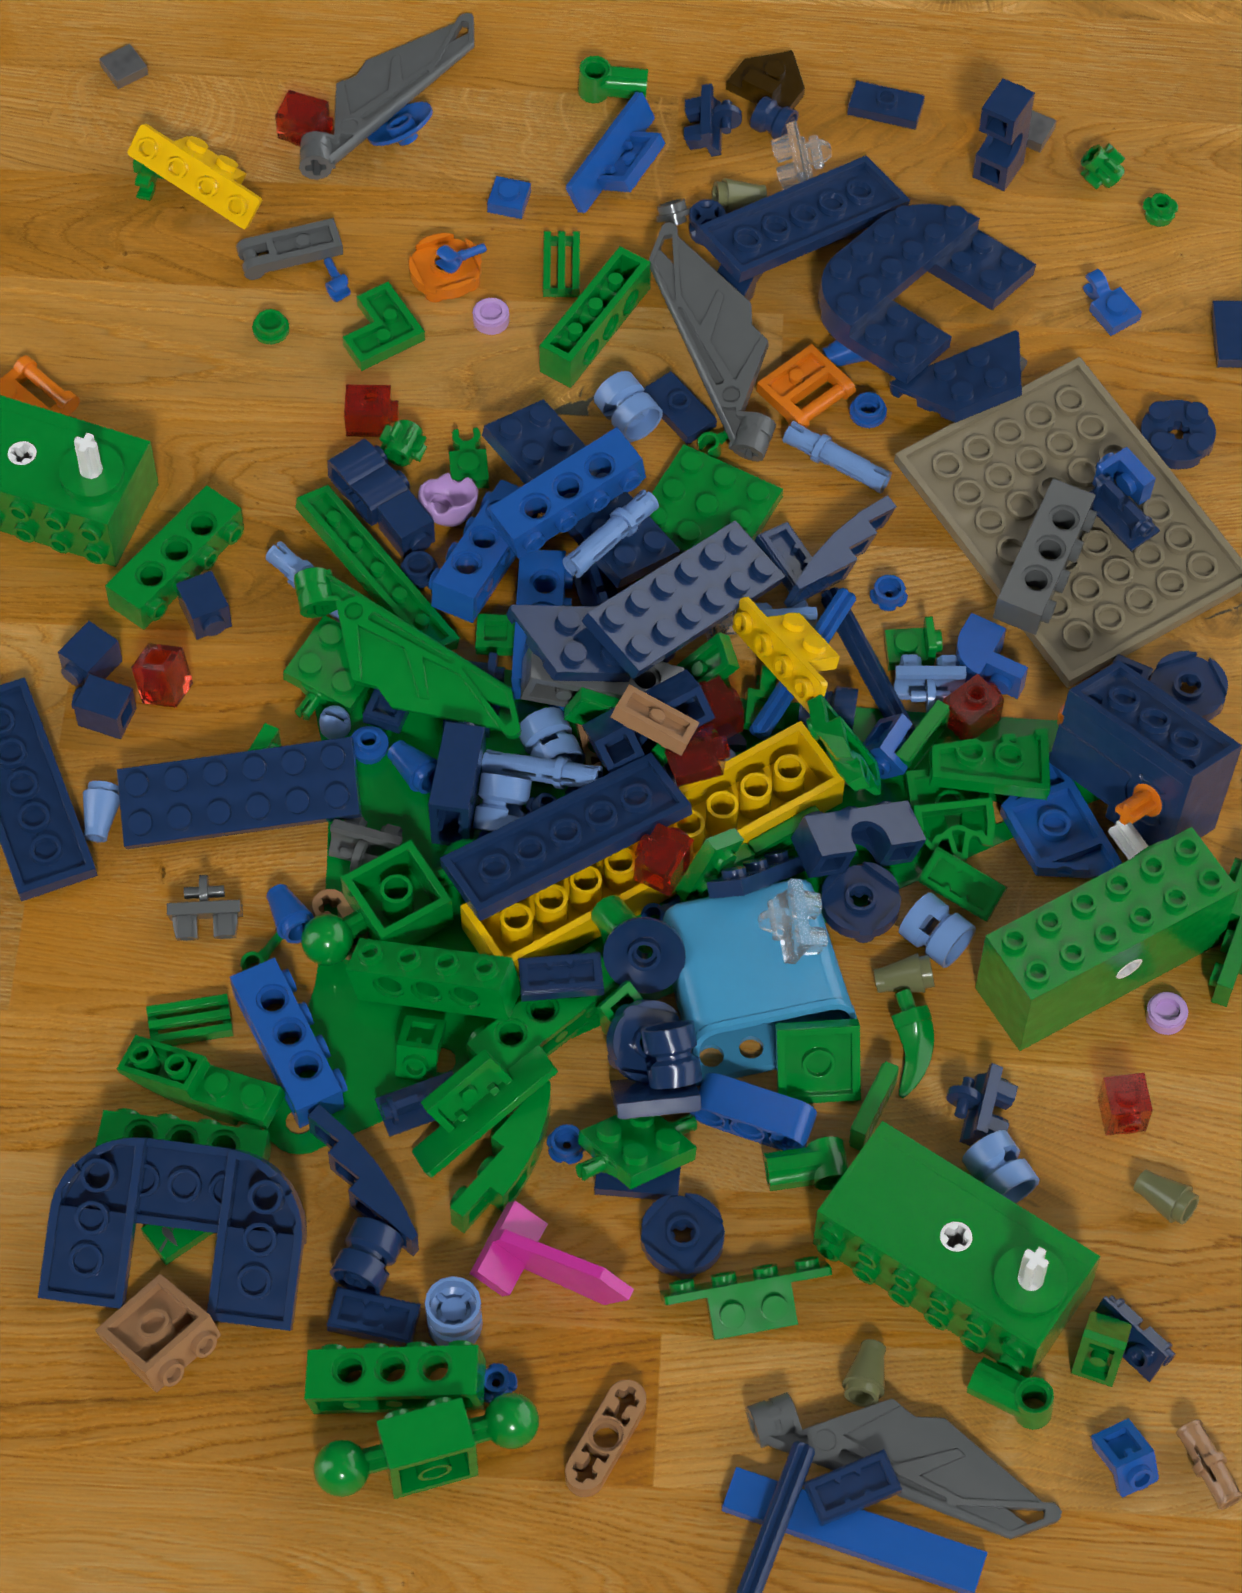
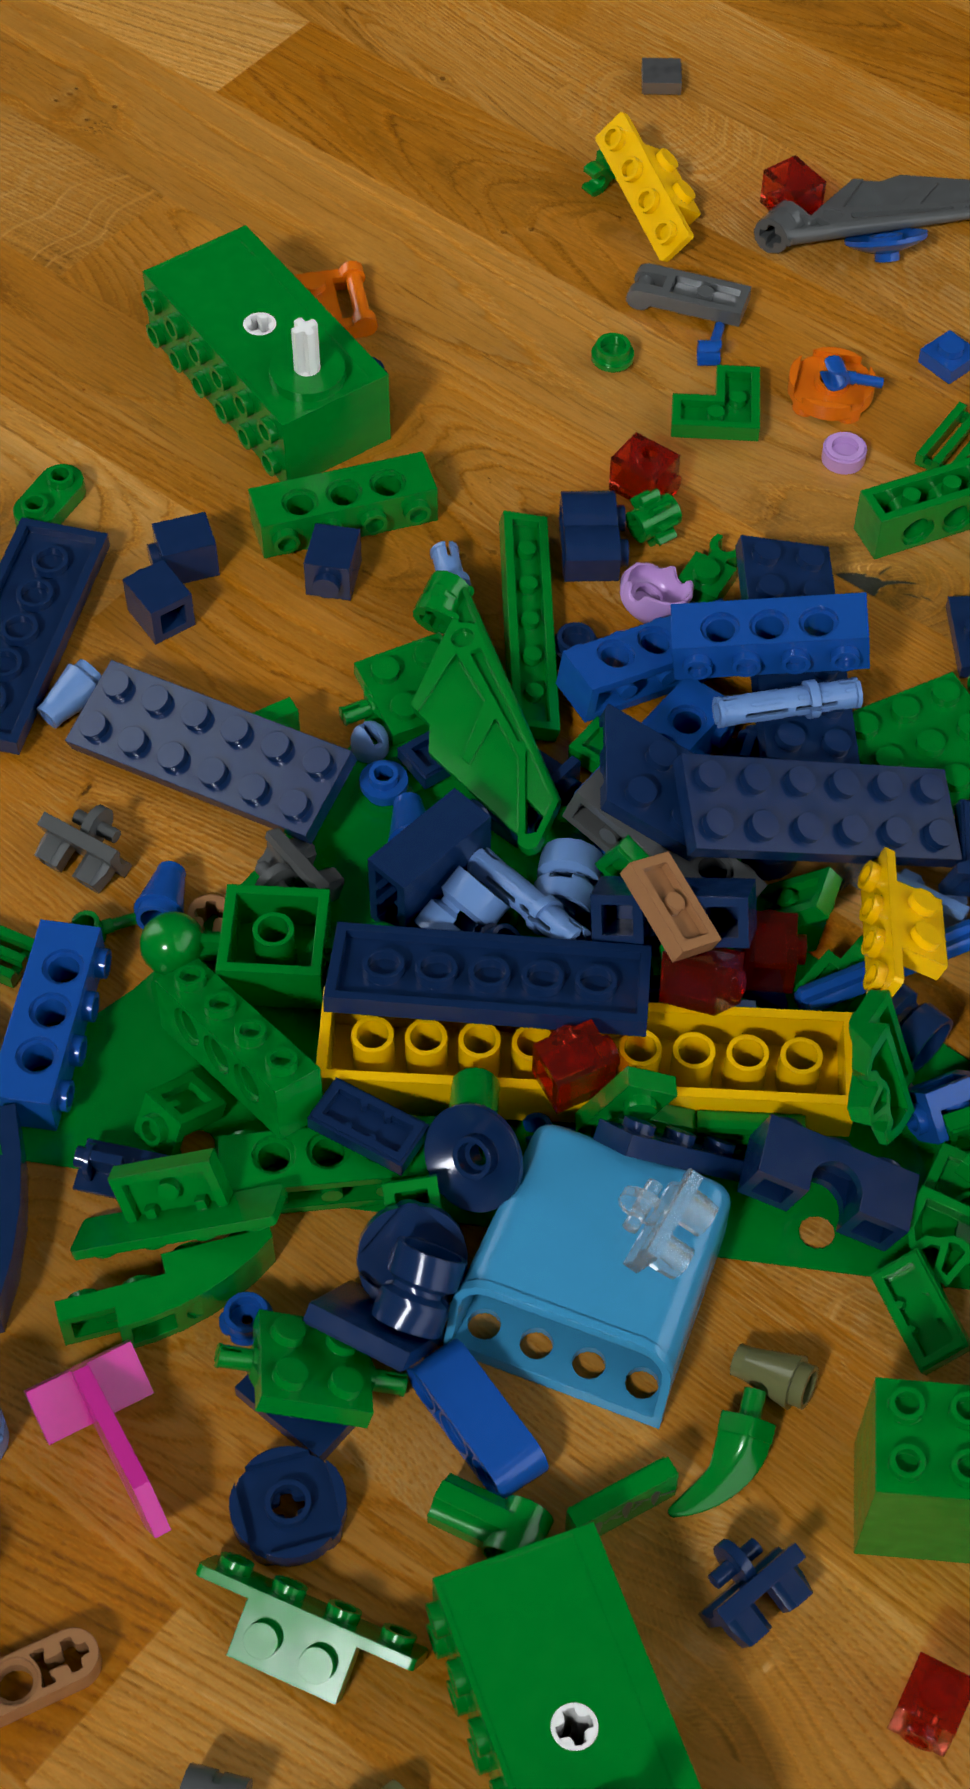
camera: 35 degrees right, 5 degrees down
(162, 675) = (232, 600): clear red brick -> none
(406, 524) = (596, 593): dark blue brick -> none
(627, 406) = (917, 602): medium blue wheel -> none
(819, 1060) = (590, 1405): green plate -> none
(855, 921) = (778, 1285): dark blue plate -> none
(949, 936) = (847, 1336): medium blue wheel -> none
(997, 1165) = (714, 1671): medium blue wheel -> none

